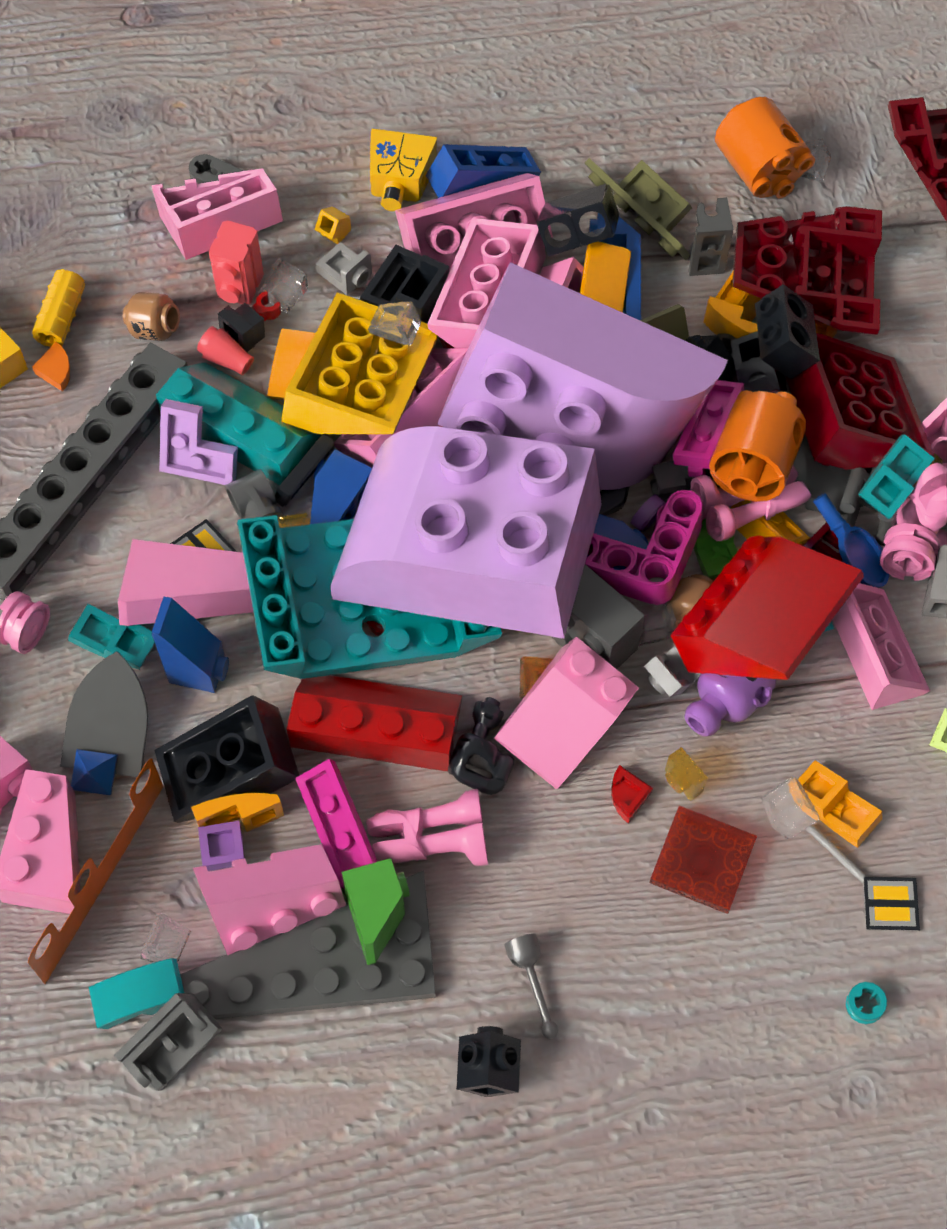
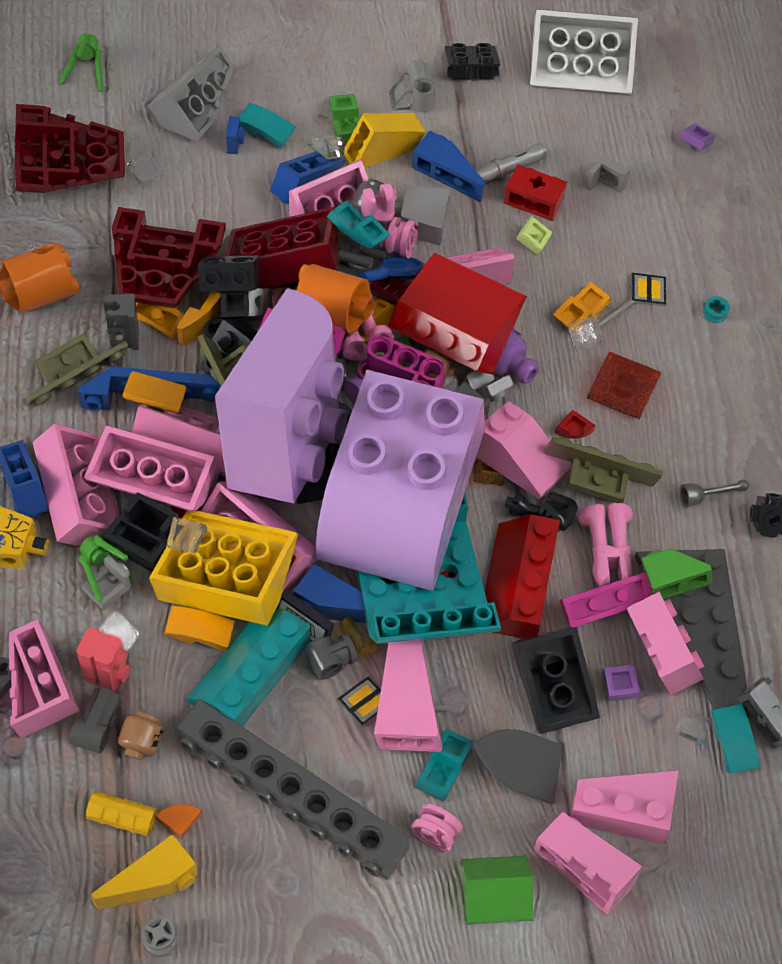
camera: 90 degrees left, 5 degrees down
(94, 772) = (560, 775): blue slope -> none
(97, 877) = (654, 763): orange piece -> none
(161, 272) = (93, 727): none -> dark grey piece
(184, 450) = (282, 698): lavender plate -> none
(188, 649) = (472, 698): blue slope -> none
(223, 350) = (179, 680): coral cone -> none
(247, 323) = (157, 661): black piece -> none
(251, 808) = (596, 662): light orange slope -> none
(334, 219) = (53, 589): yellow piece -> none
(378, 251) = (93, 552): none -> bright green plant
(537, 814) = (600, 472): none -> olive bracket
(578, 205) = (106, 398): black piece -> none
(684, 774) = (564, 387): clear yellow plate -> none

